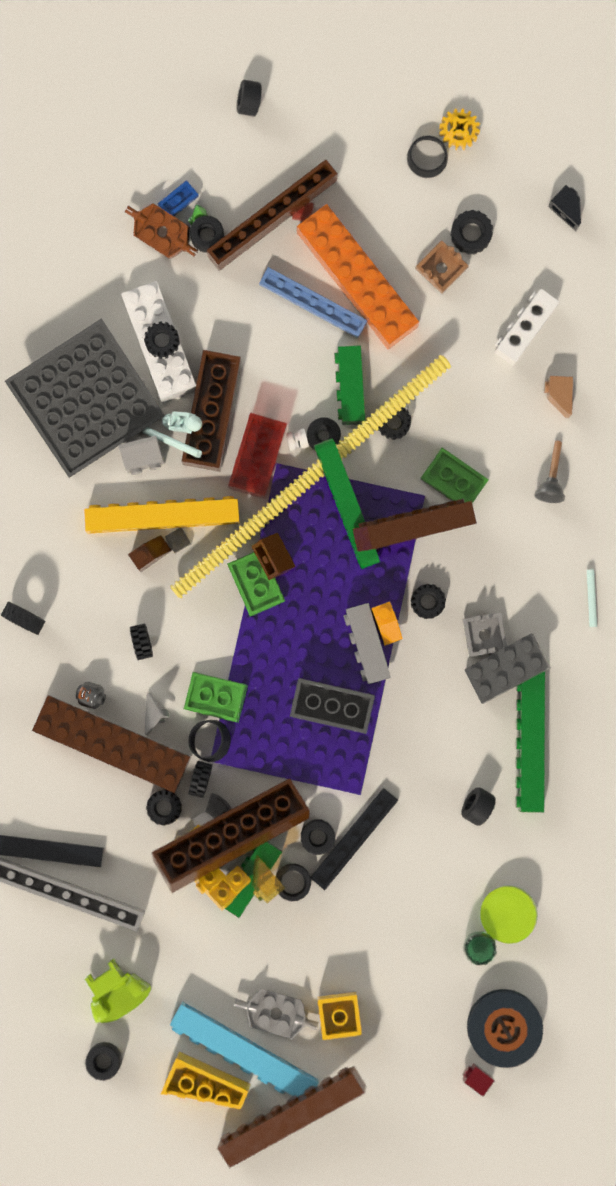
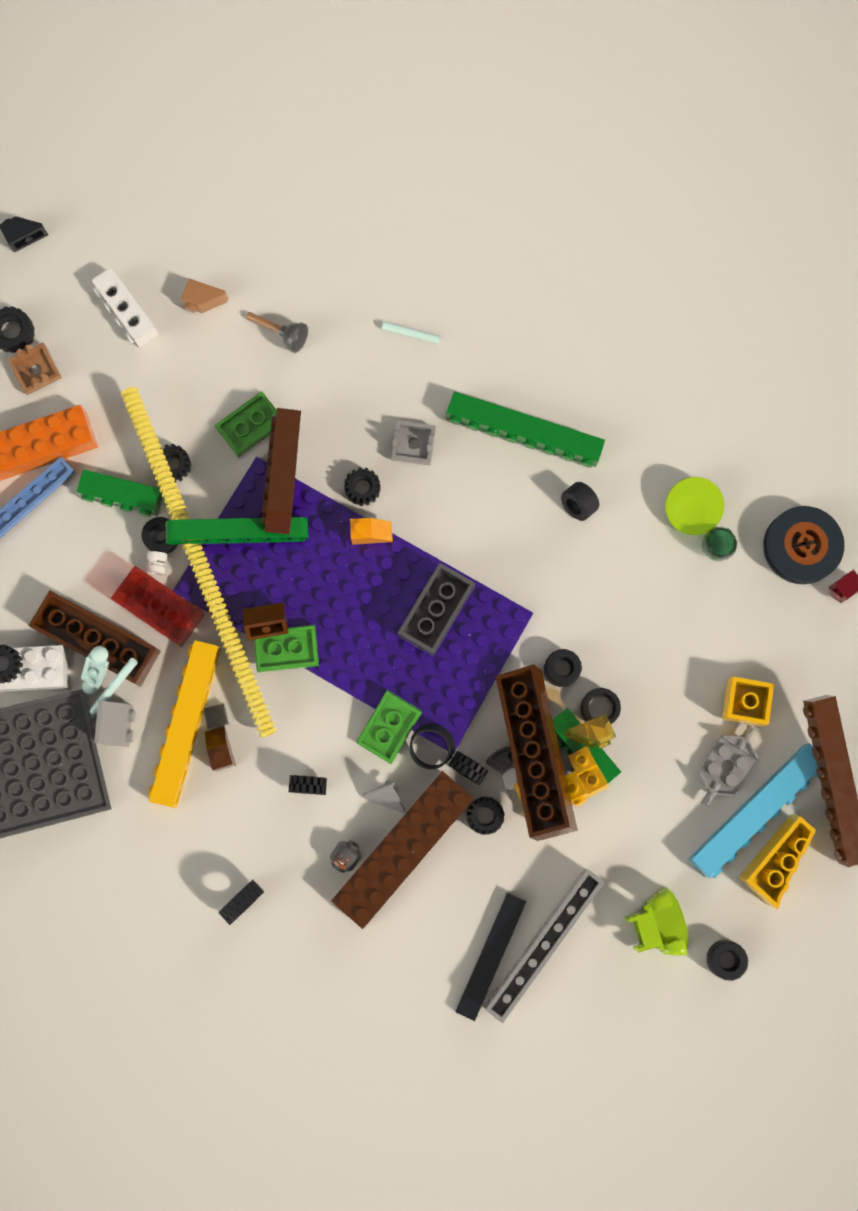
camera: 70 degrees left, 5 degrees down
(354, 839) = (575, 633): black tile -> none
(367, 642) = (385, 556): light grey brick -> none
(507, 668) = (453, 430): dark grey plate -> none

